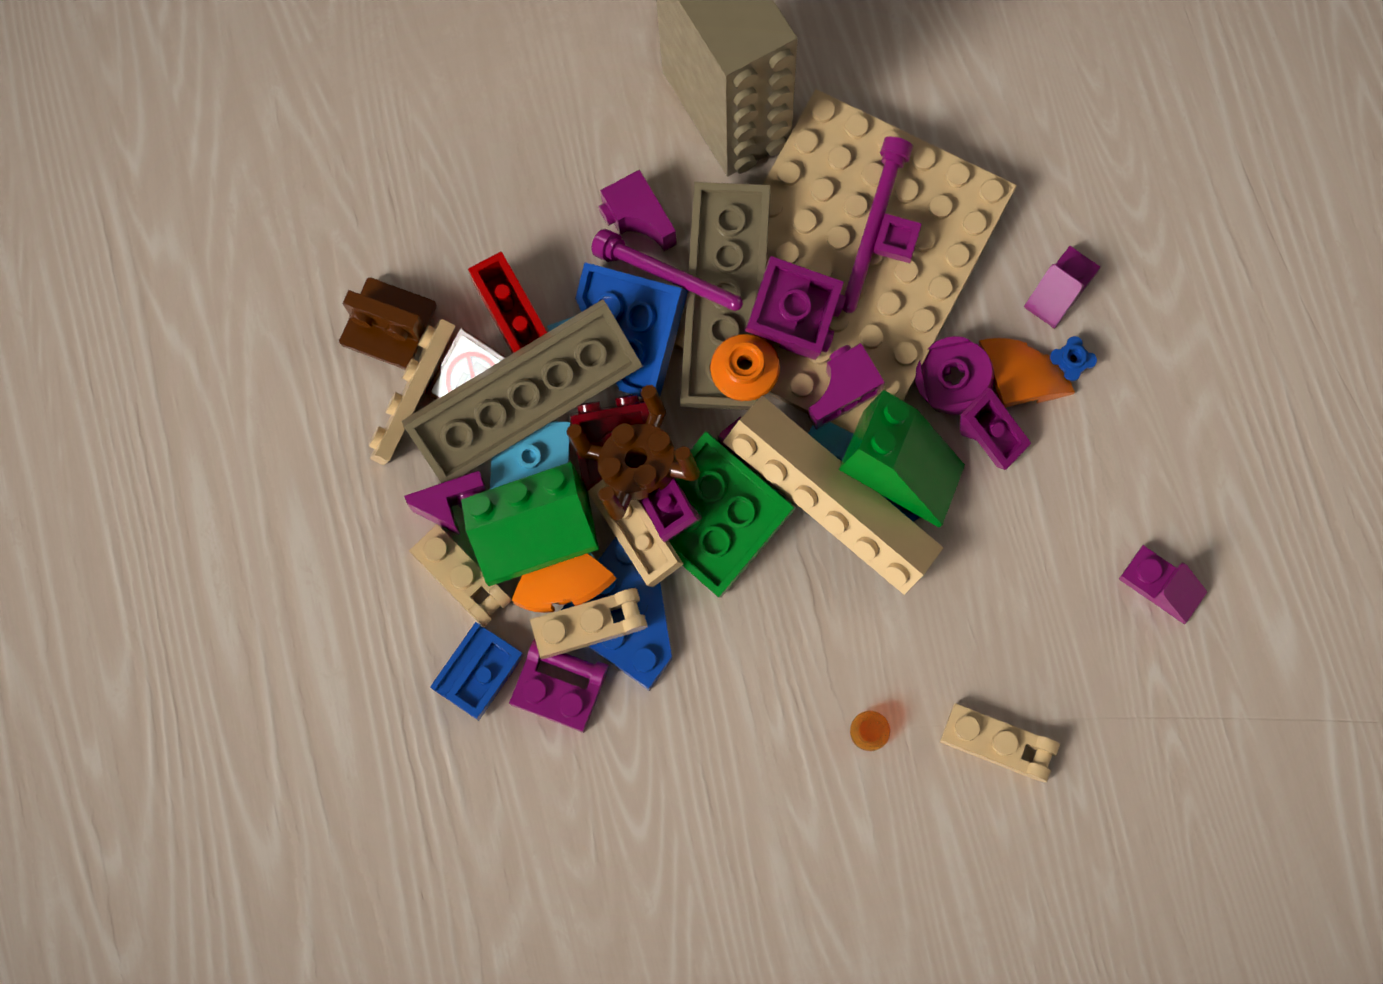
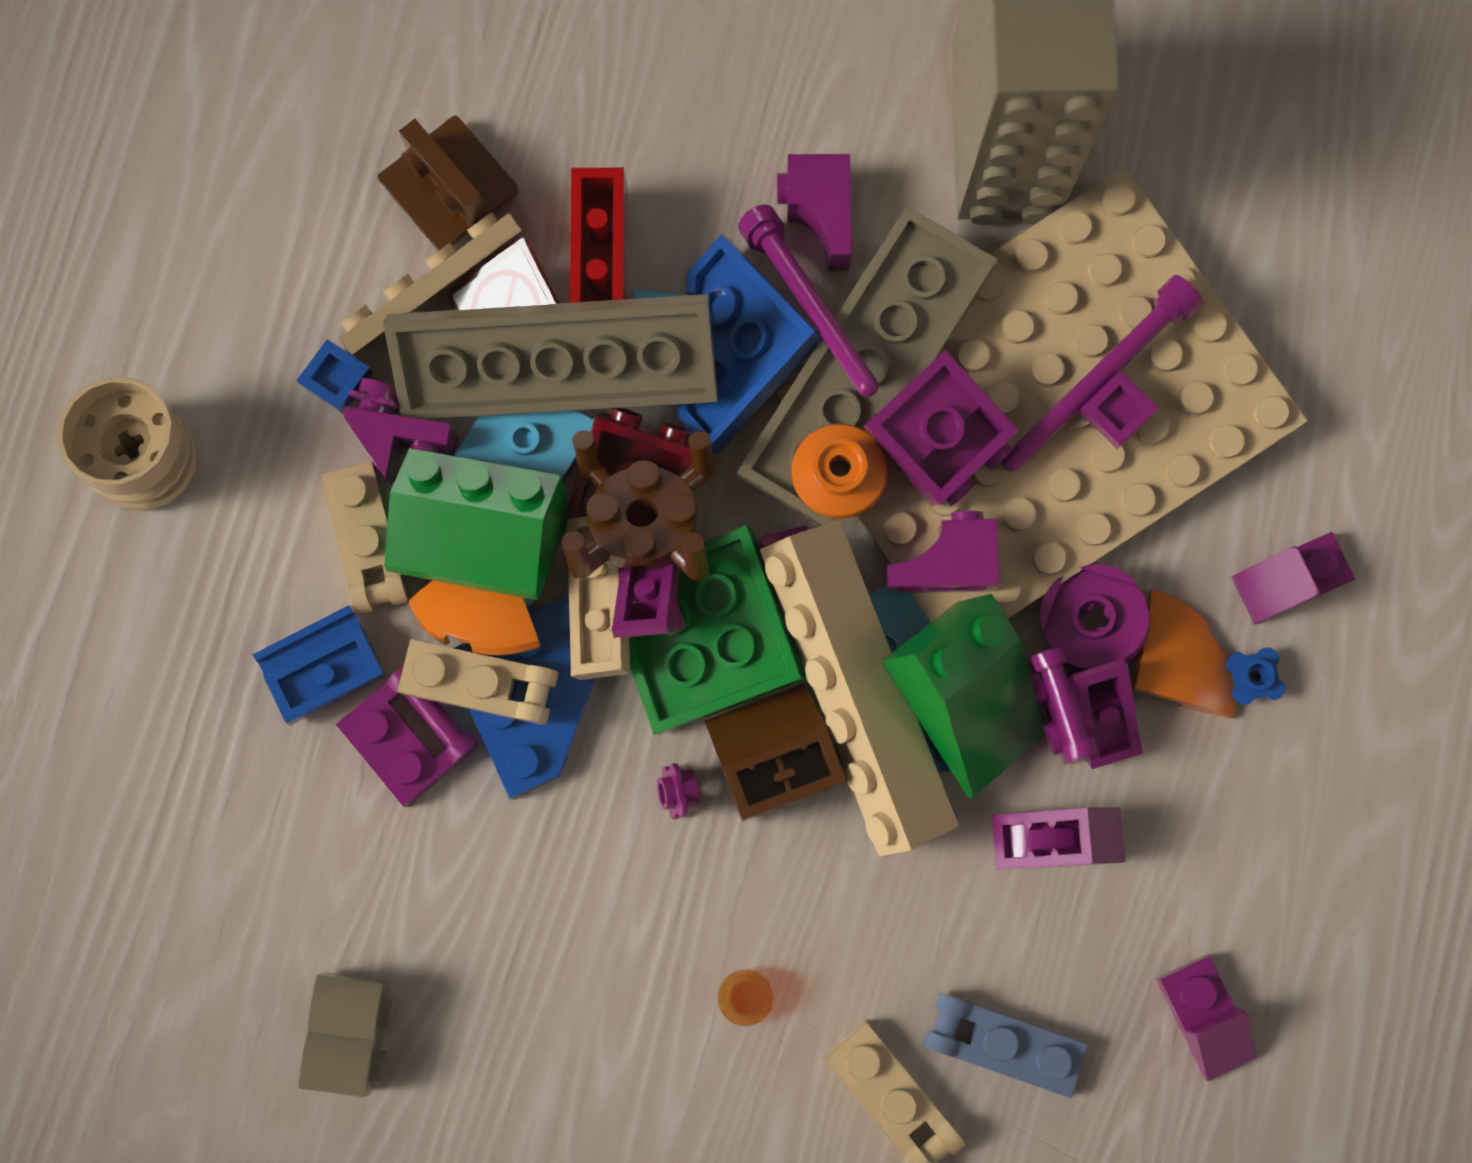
camera: 25 degrees right, 5 degrees up
(258, 581) = (104, 429): none -> tan wheel
(383, 483) = (333, 375): none -> blue plate
(419, 479) = (376, 396): none -> magenta plate
(627, 894) = (346, 1033): none -> dark tan brick
(754, 624) = (678, 790): none -> magenta plate
(803, 566) = (775, 752): none -> reddish brown slope
(974, 449) = (1065, 728): none -> magenta plate
(1009, 522) = (1058, 838): none -> magenta arch
(1050, 669) = (1008, 1046): none -> sand blue plate

